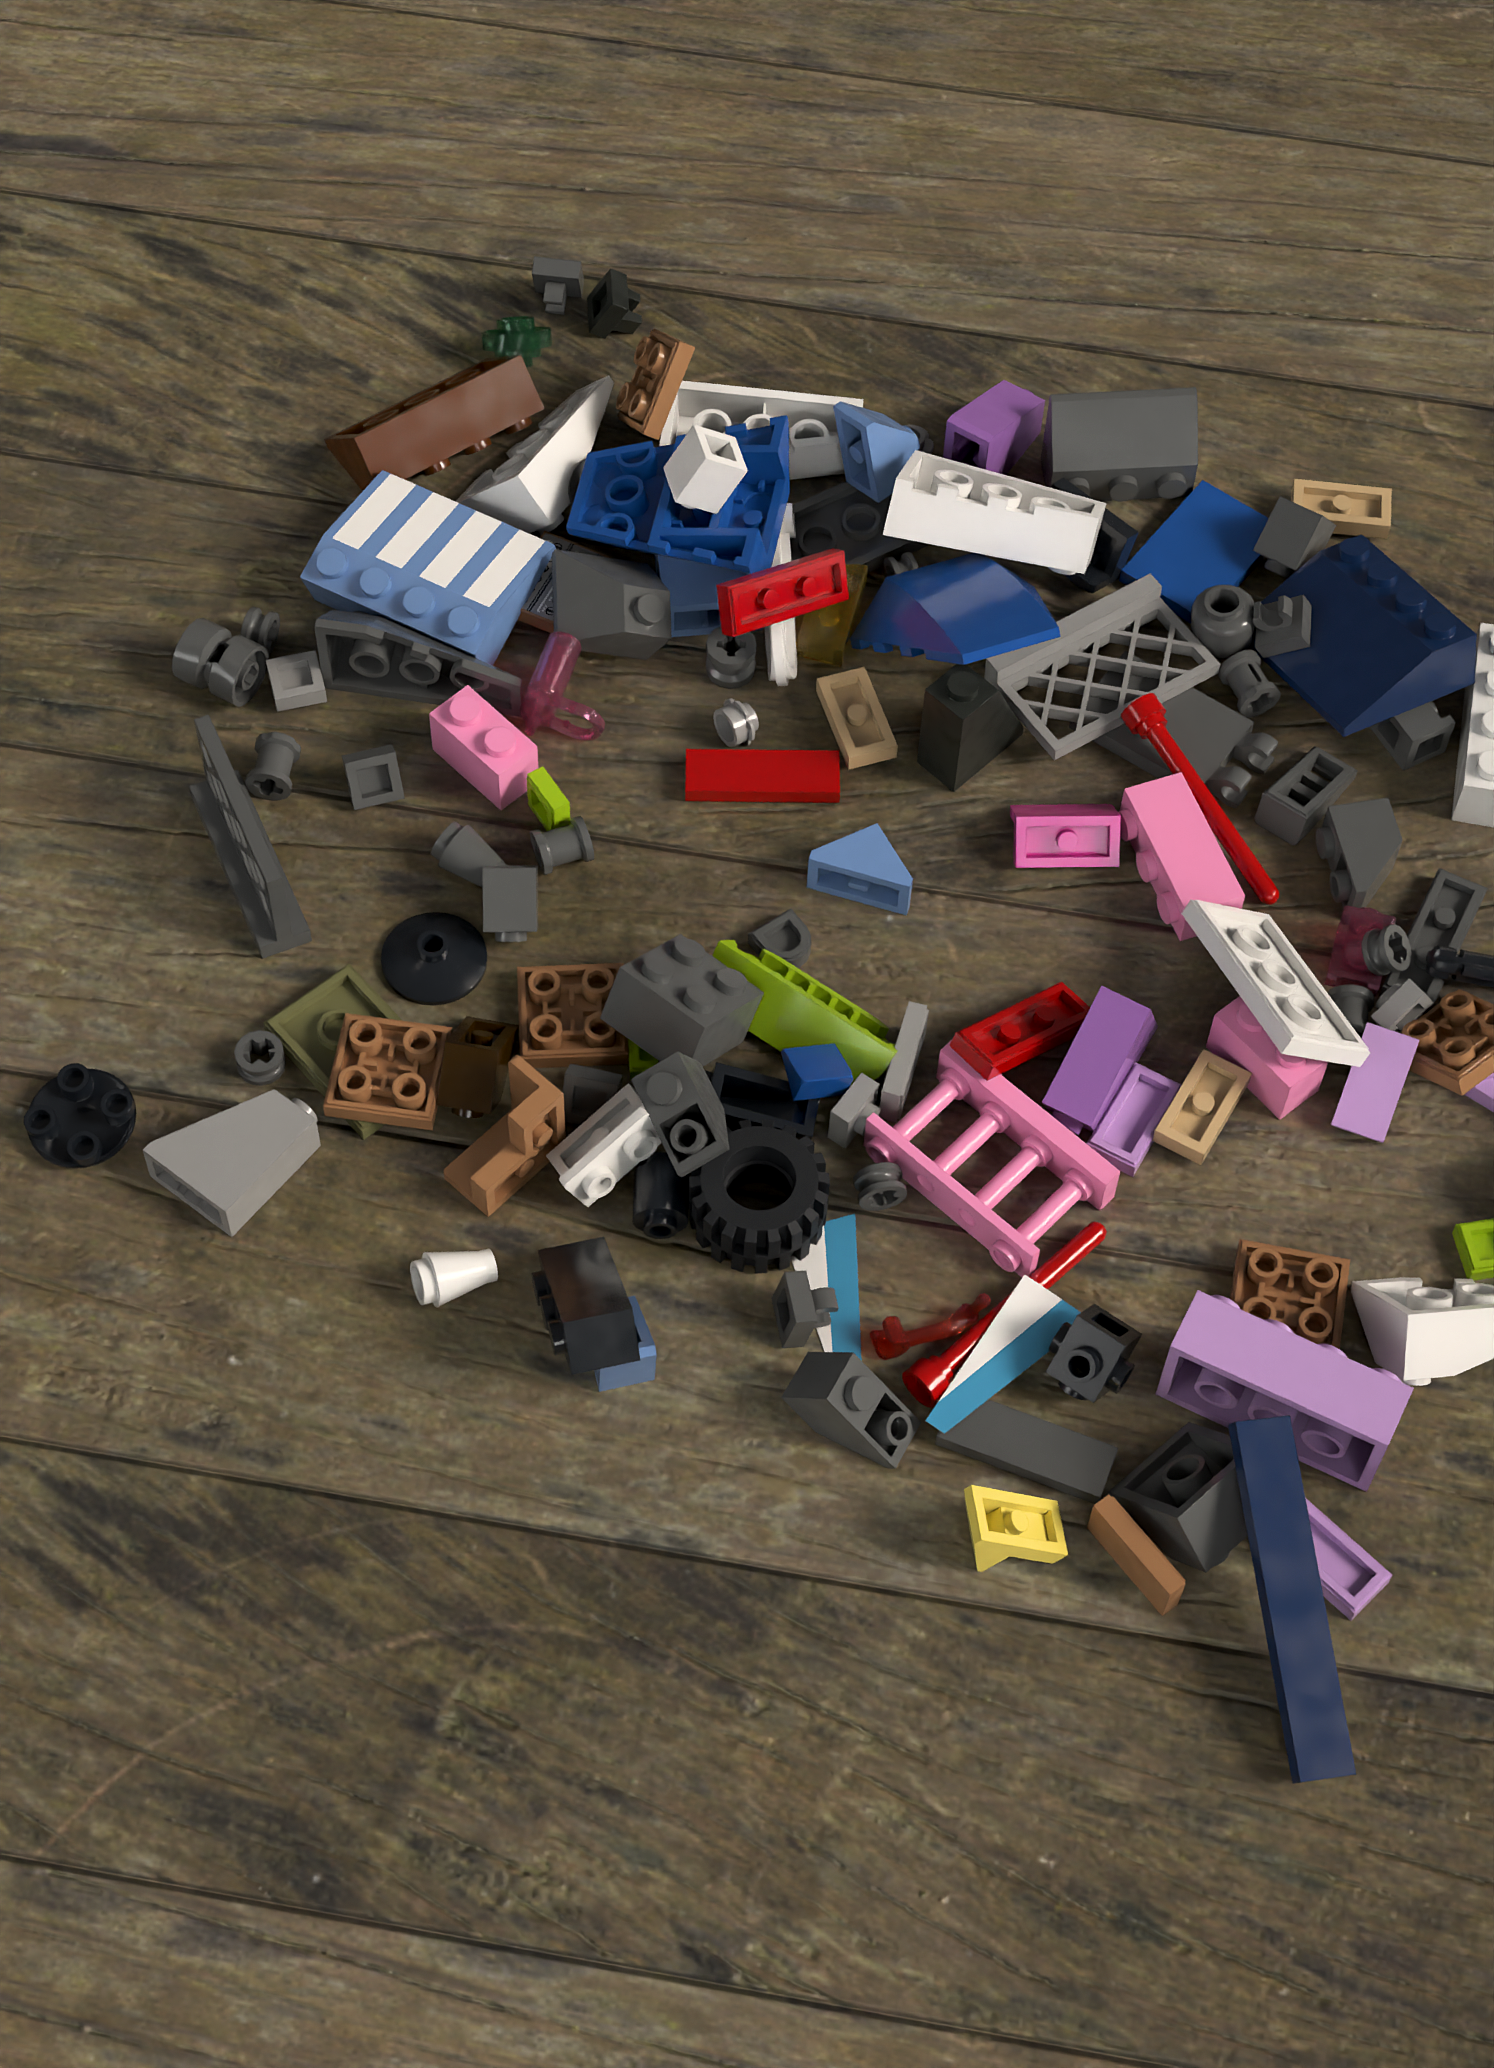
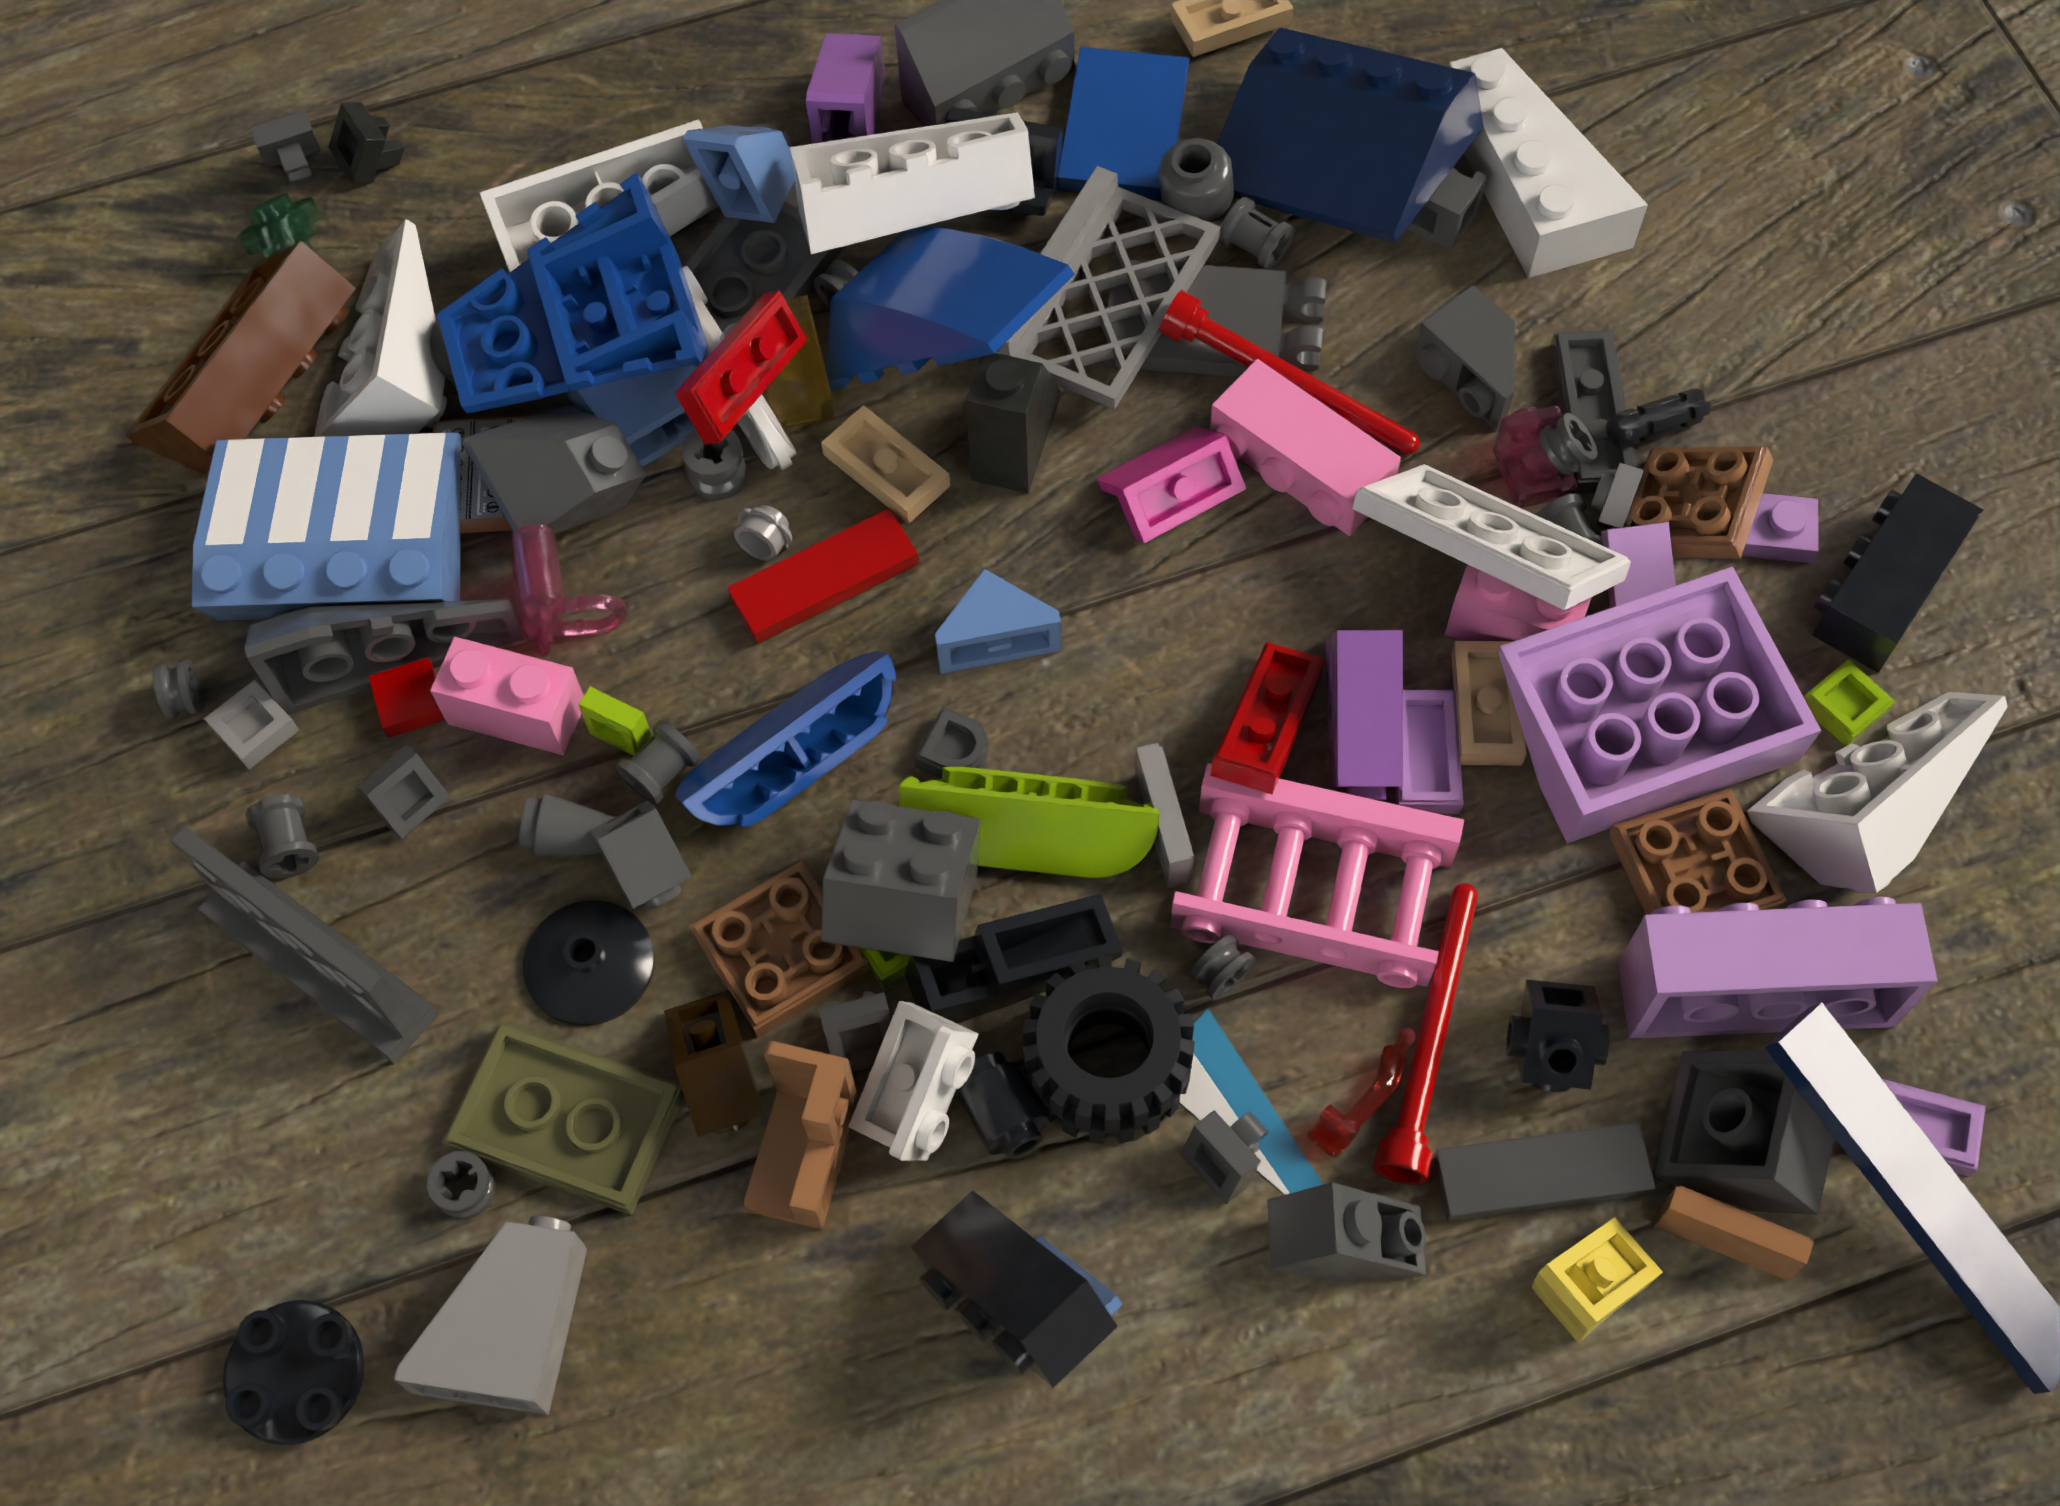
camera: 25 degrees left, 5 degrees up
(215, 660) = (141, 747): dark grey wheel -> none
(386, 1072) = (619, 1126): medium nougat tile -> none
(409, 715) = (405, 697): none -> red tile
(449, 1275) = (824, 1327): white cone -> none
(654, 386) = (465, 204): medium nougat tile -> none
(665, 880) = (792, 744): none -> blue brick
(684, 1111) = (990, 1007): dark grey slope -> none
(705, 469) = (585, 272): white brick -> none
(816, 1071) = (1087, 876): blue slope -> none
(852, 1110) = (1150, 897): light grey plate -> none
(1008, 1348) = (1465, 1063): sticker -> none
(1282, 625) = (1261, 157): dark grey tile -> none
(1292, 537) = (1211, 64): dark grey brick -> none
(1302, 798) = (1378, 324): dark grey slope -> none
(1323, 1165) = (1655, 704): none -> lavender slope

